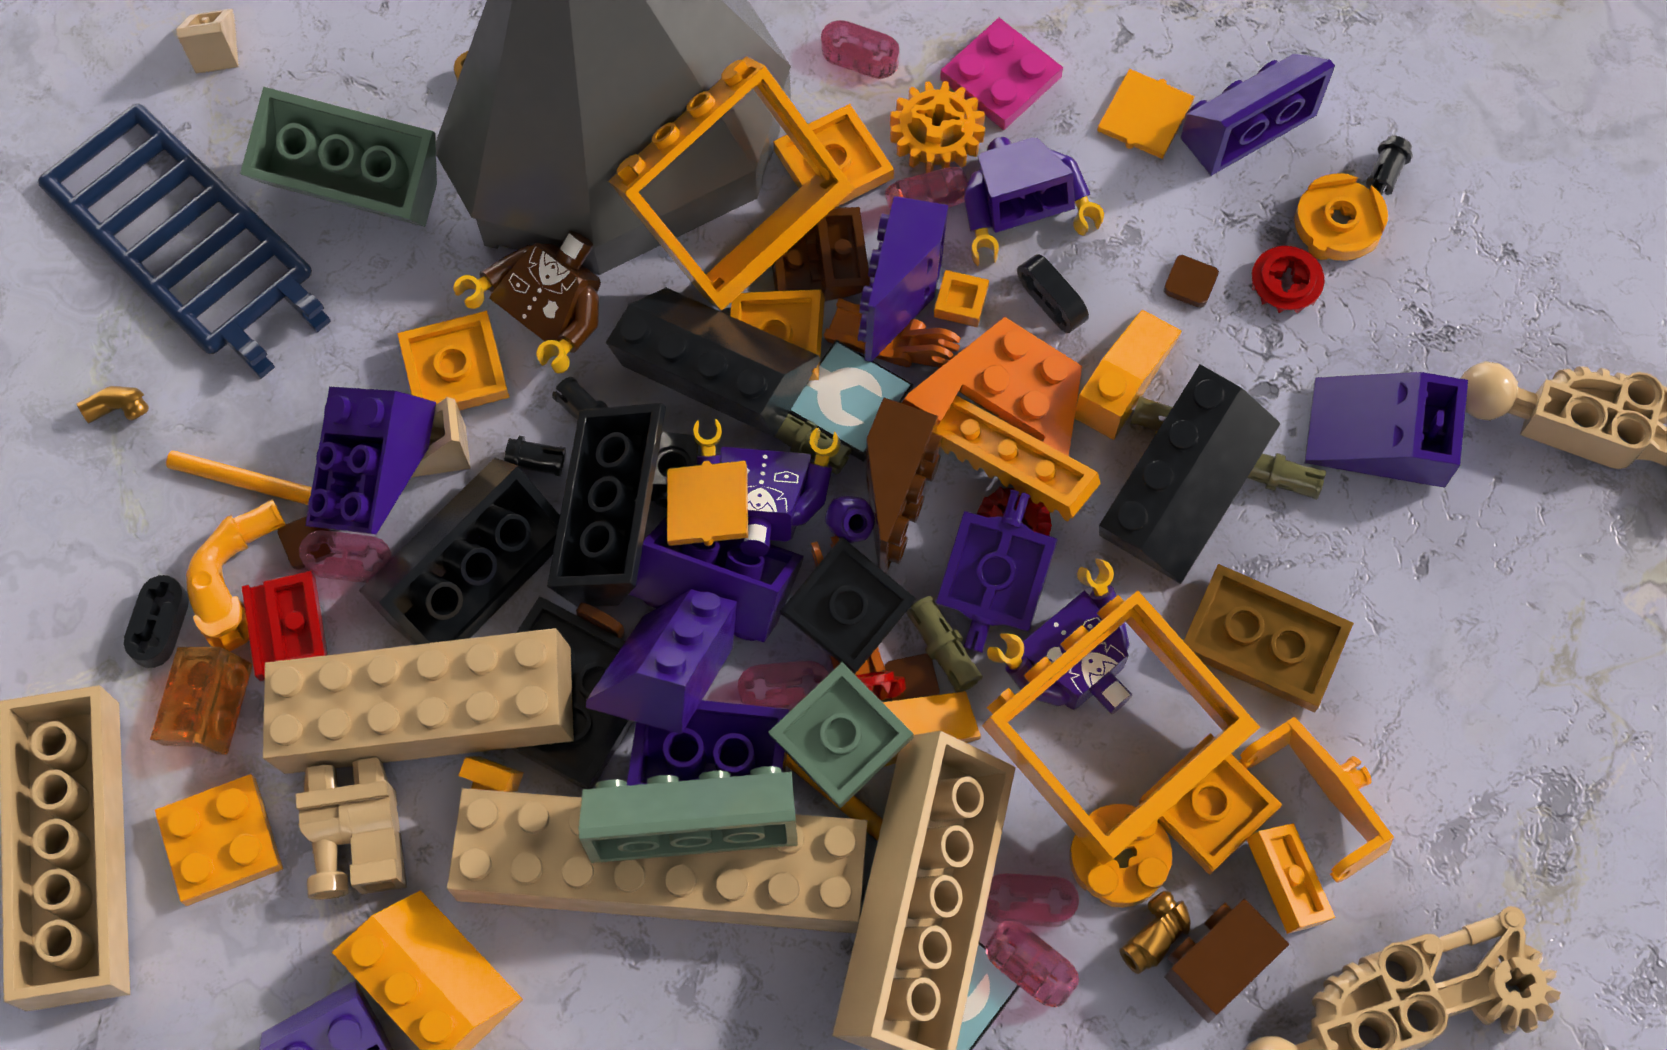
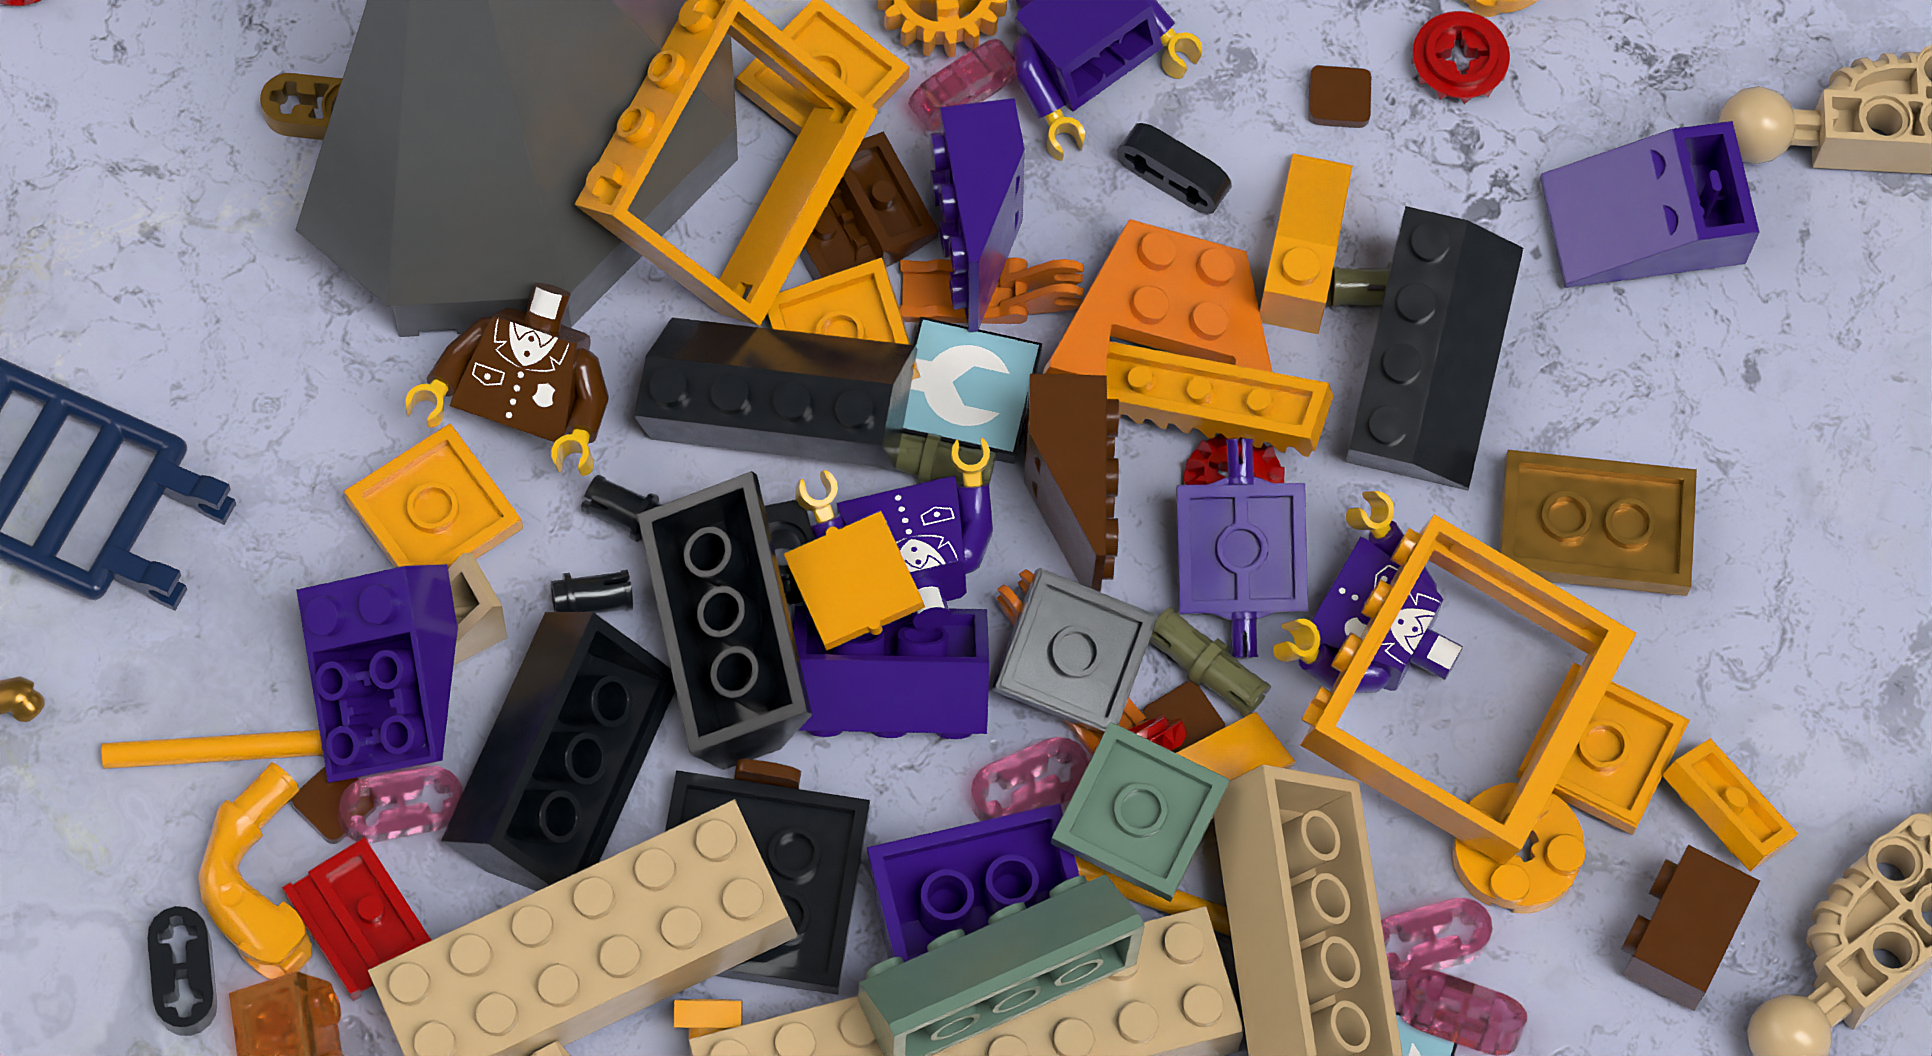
camera: 25 degrees left, 0 degrees up
(342, 156) = (175, 277): sand green slope -> none
(668, 662) = (883, 794): dark purple slope -> none
(850, 518) = (1036, 541): dark purple plant -> none
(961, 298) = (1060, 211): light orange plate -> none
(1154, 940) = (1597, 931): pearl gold arm -> none
(1288, 475) = (1553, 310): olive pin -> none
(1338, 783) = (1746, 672): light orange piece -> none

